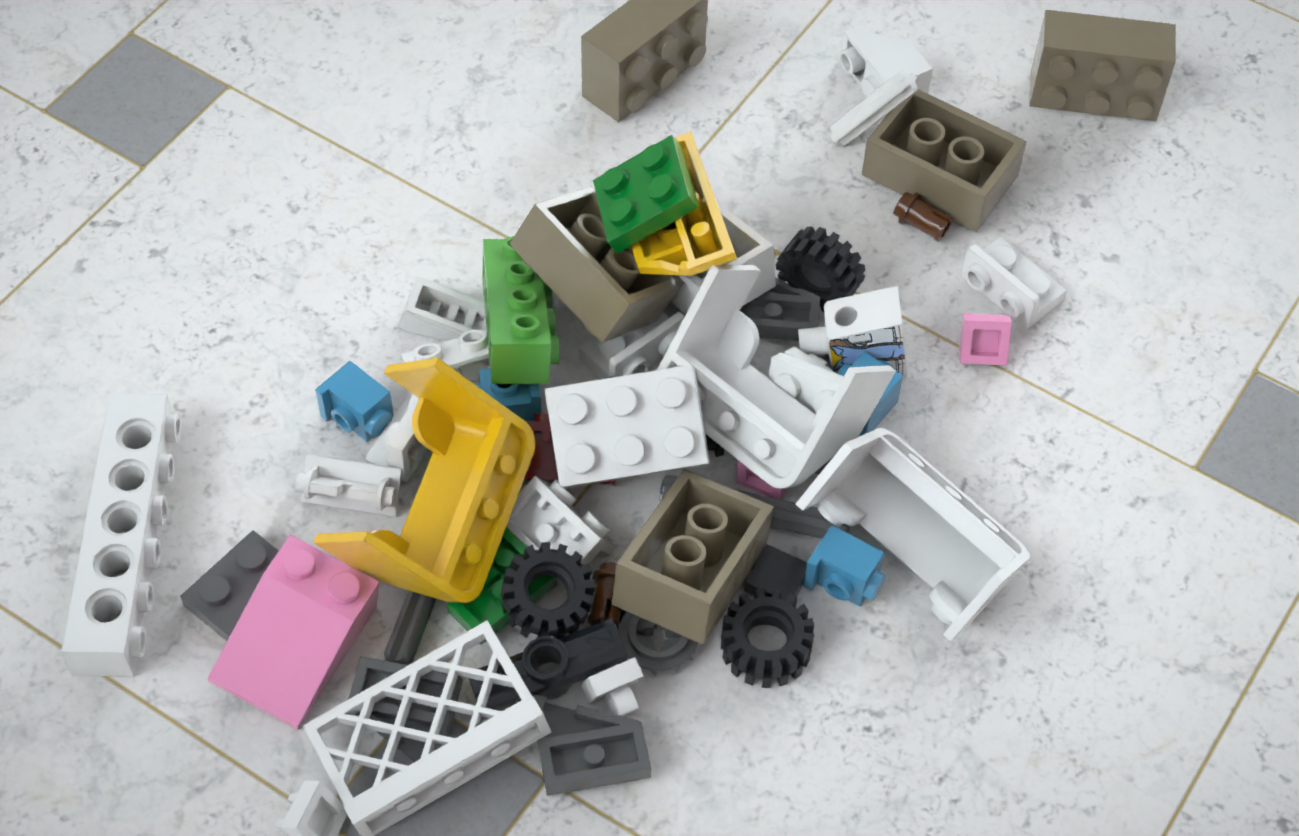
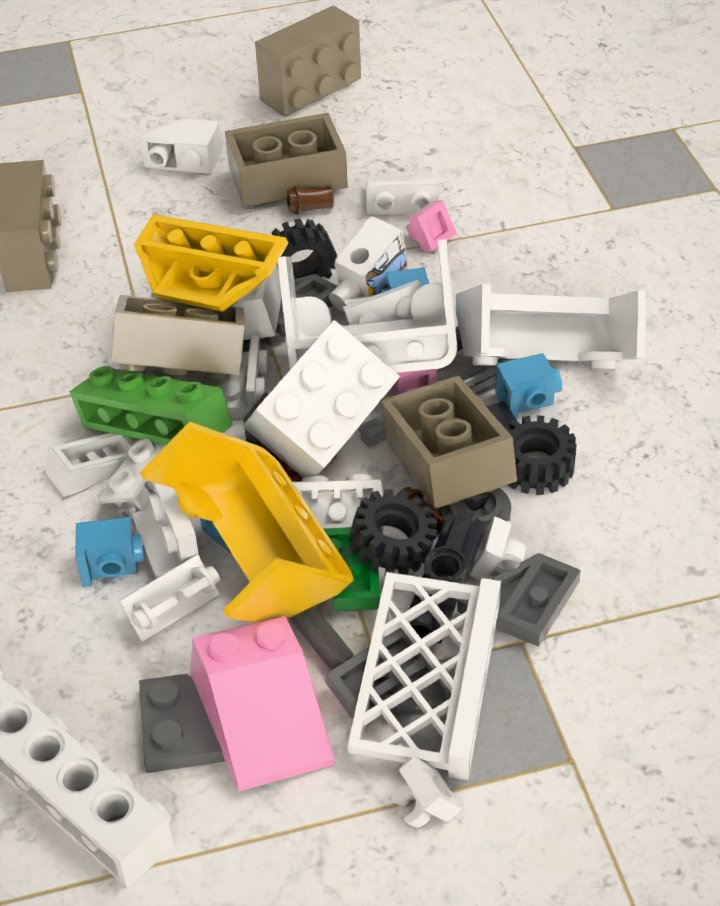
camera: 45 degrees left, 10 degrees down
(645, 194) = (173, 262): green plate -> none
(874, 107) = (219, 155): white axle -> none

